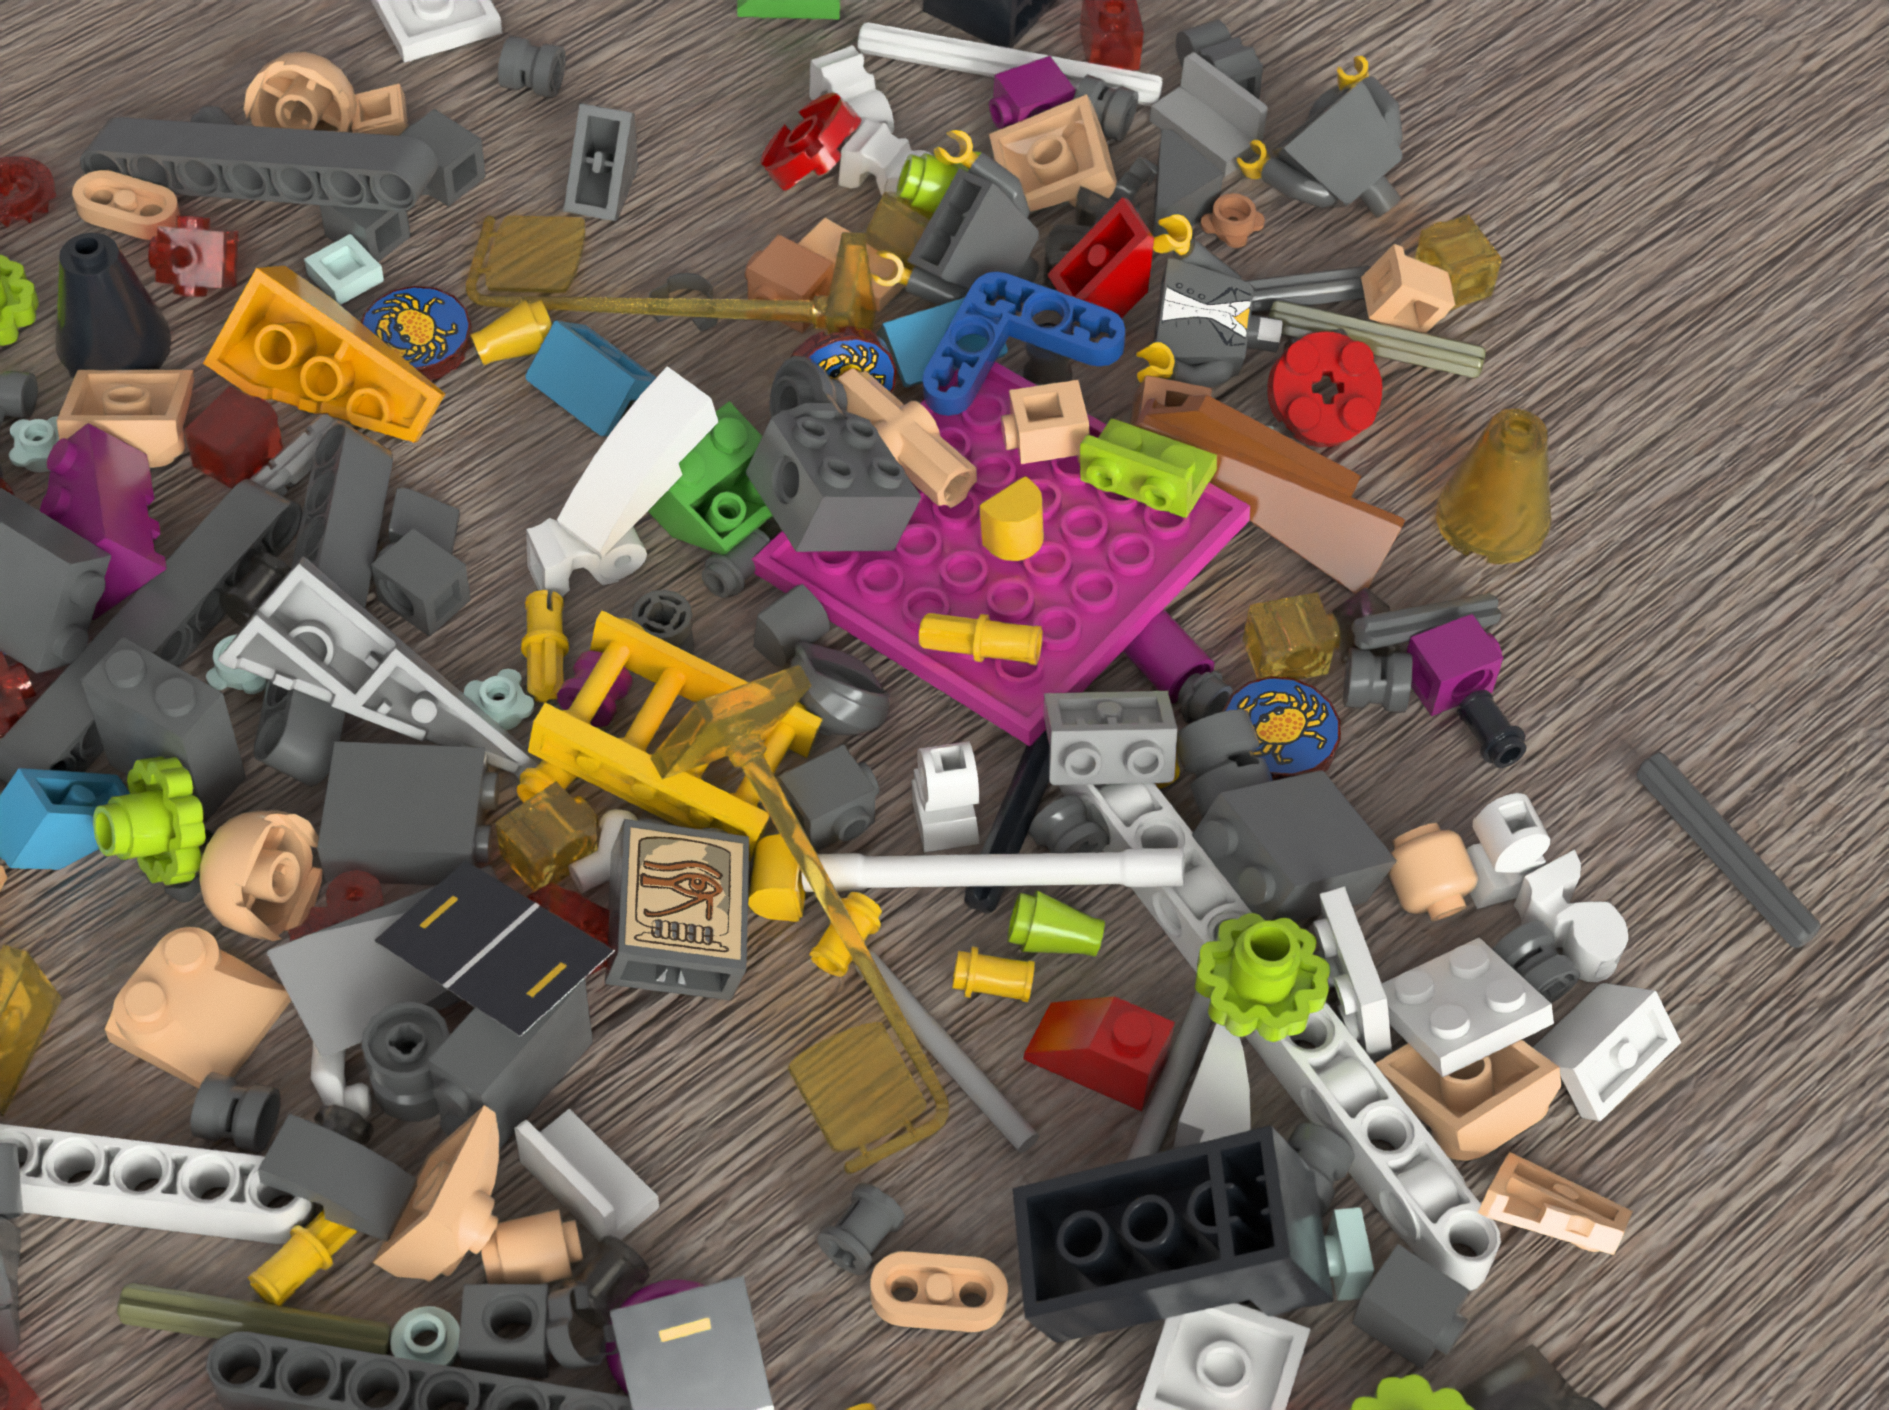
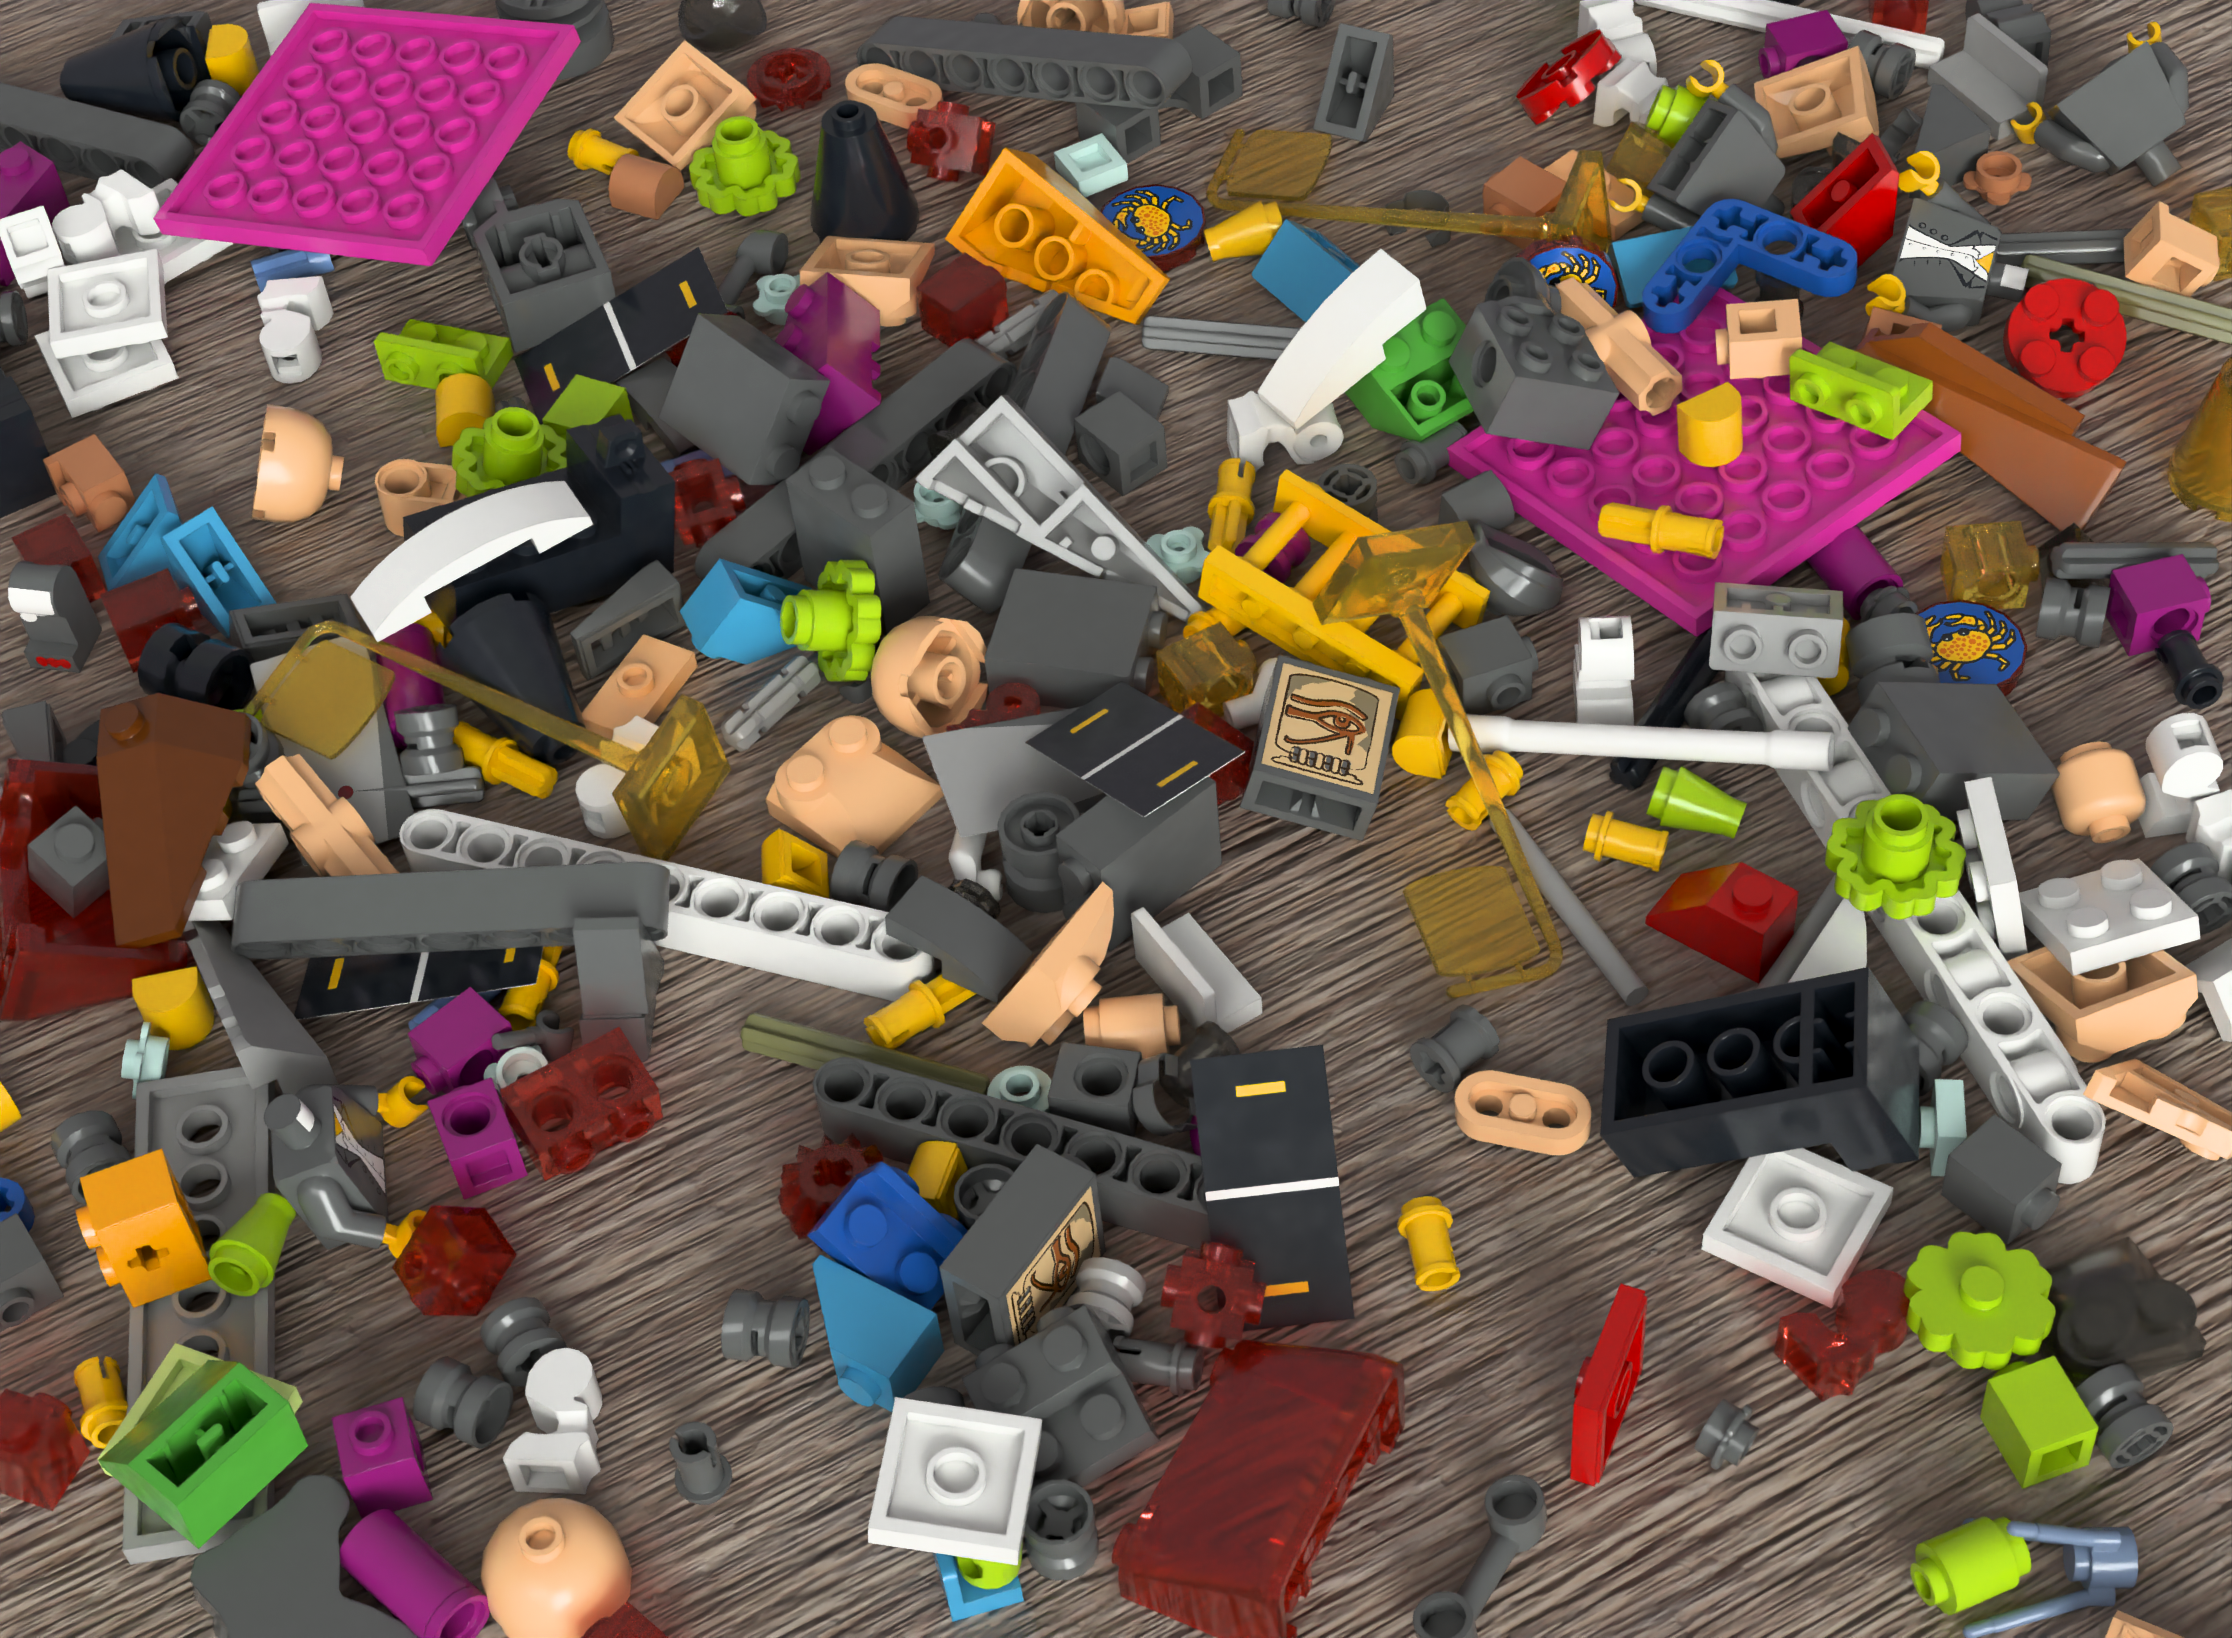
camera: 20 degrees right, 5 degrees down
(93, 915) = (770, 703): none -> light grey axle
(148, 1110) = (794, 864): none -> yellow brick
(508, 452) = (1216, 337): none -> axle

